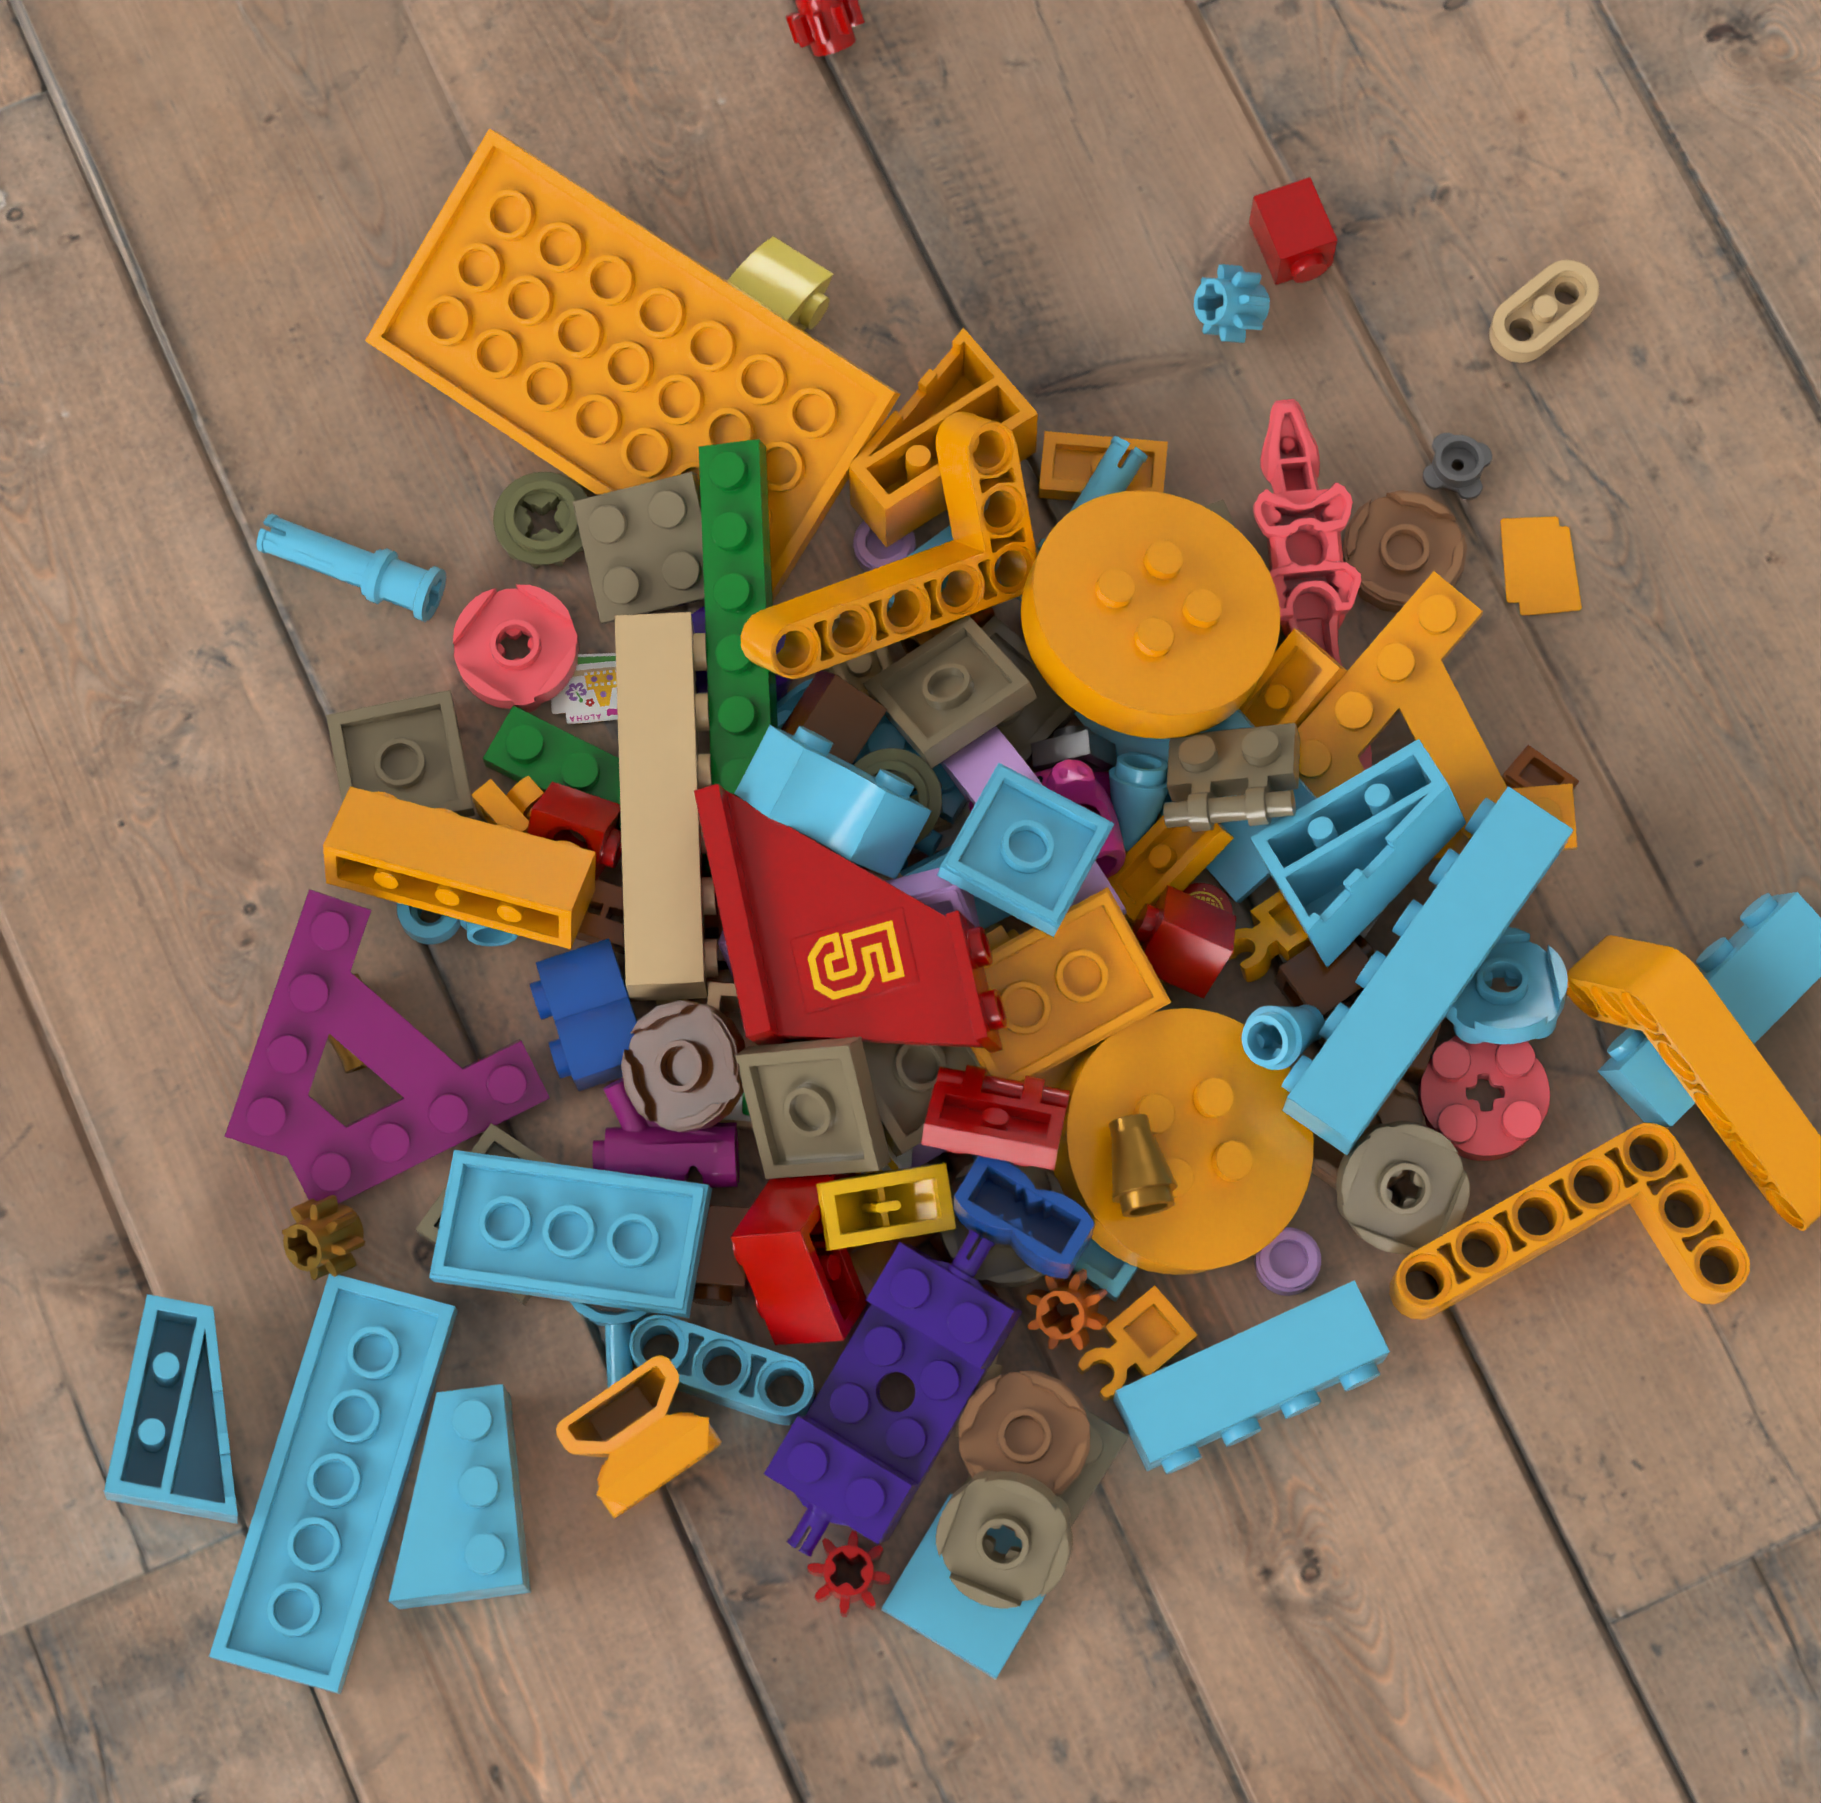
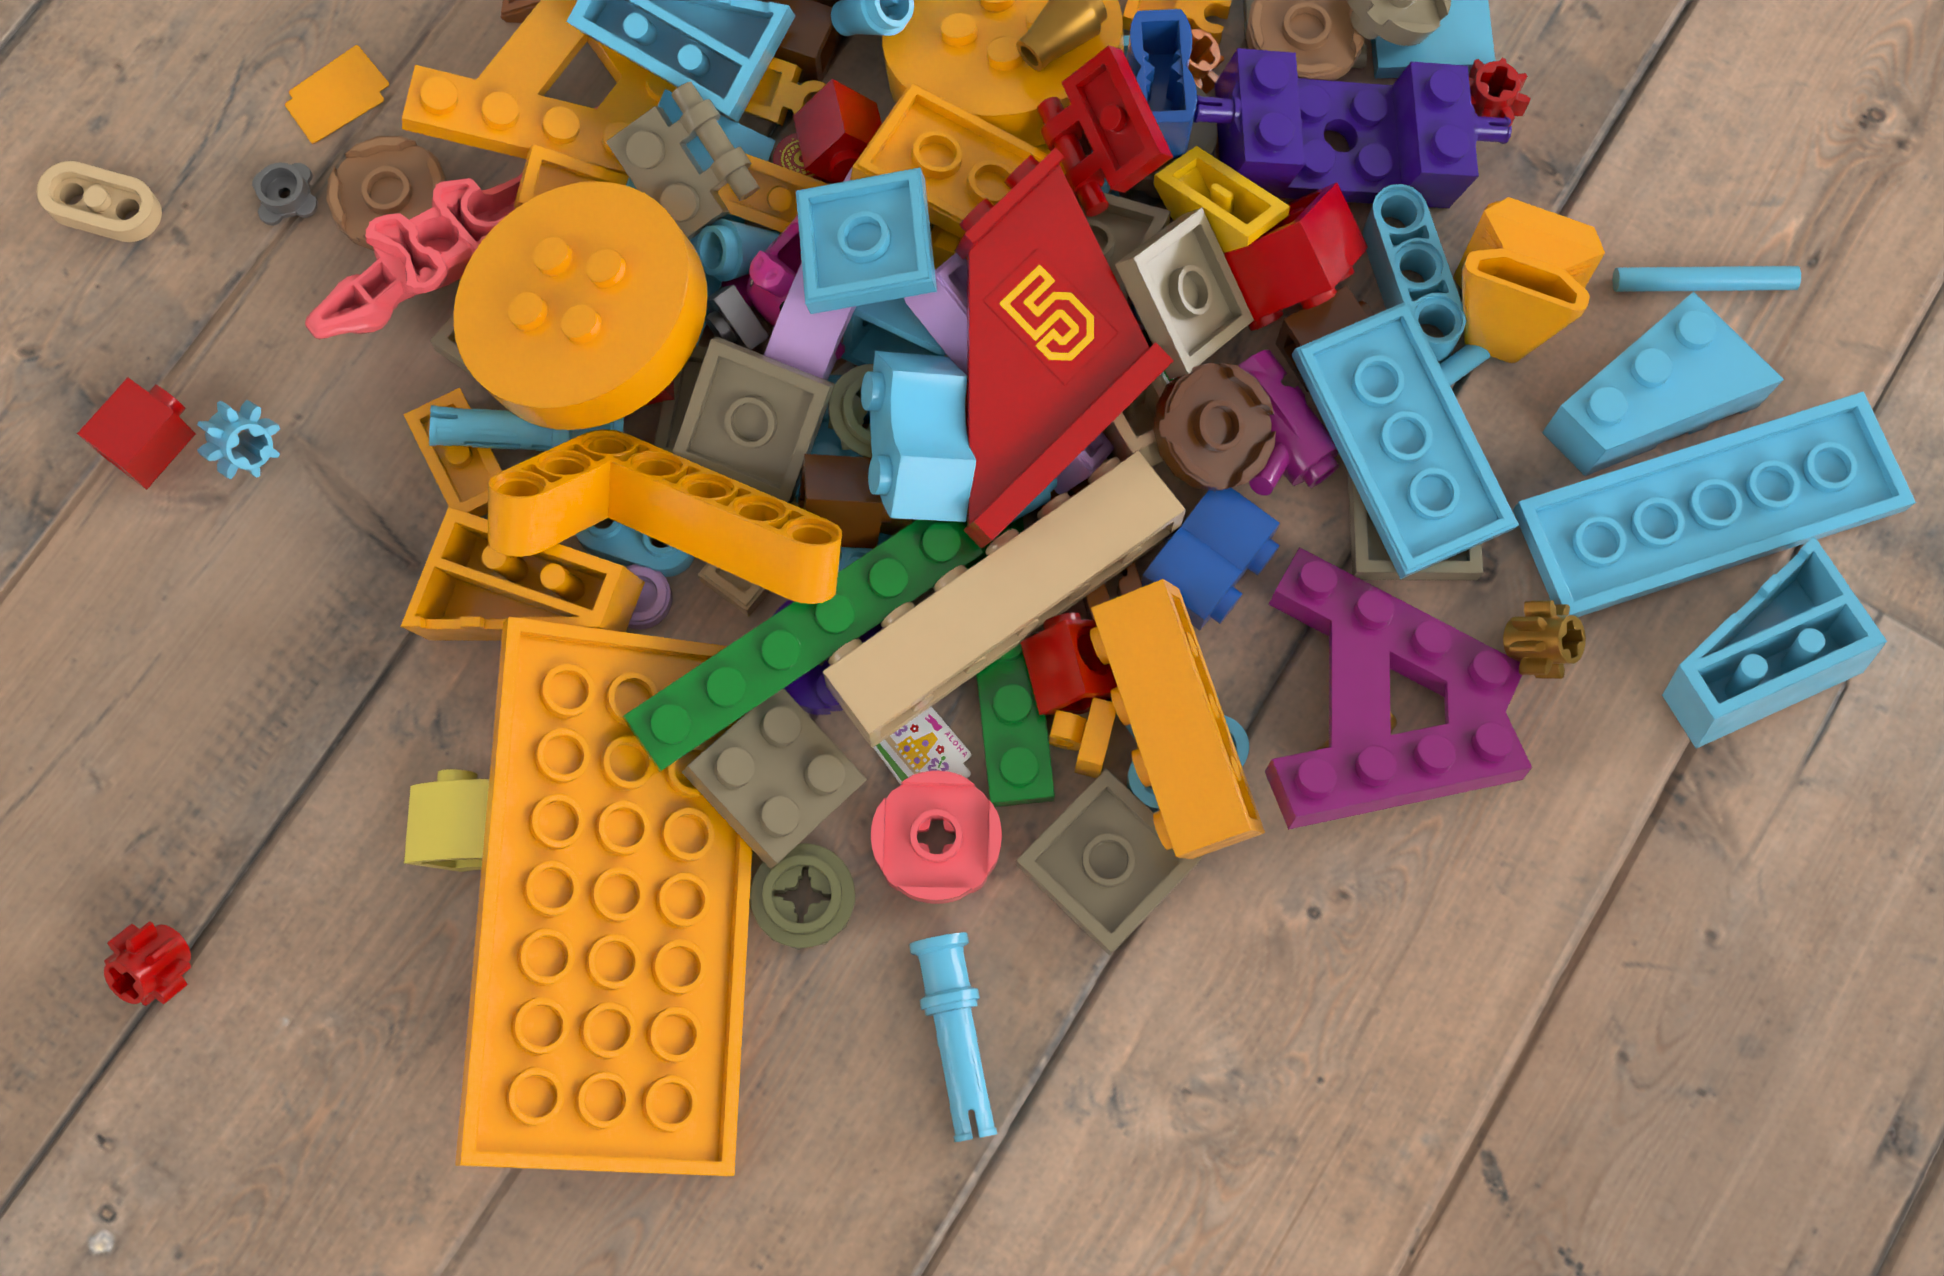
camera: 125 degrees left, 0 degrees up
(544, 1650) = (1706, 278): none -> medium azure bar

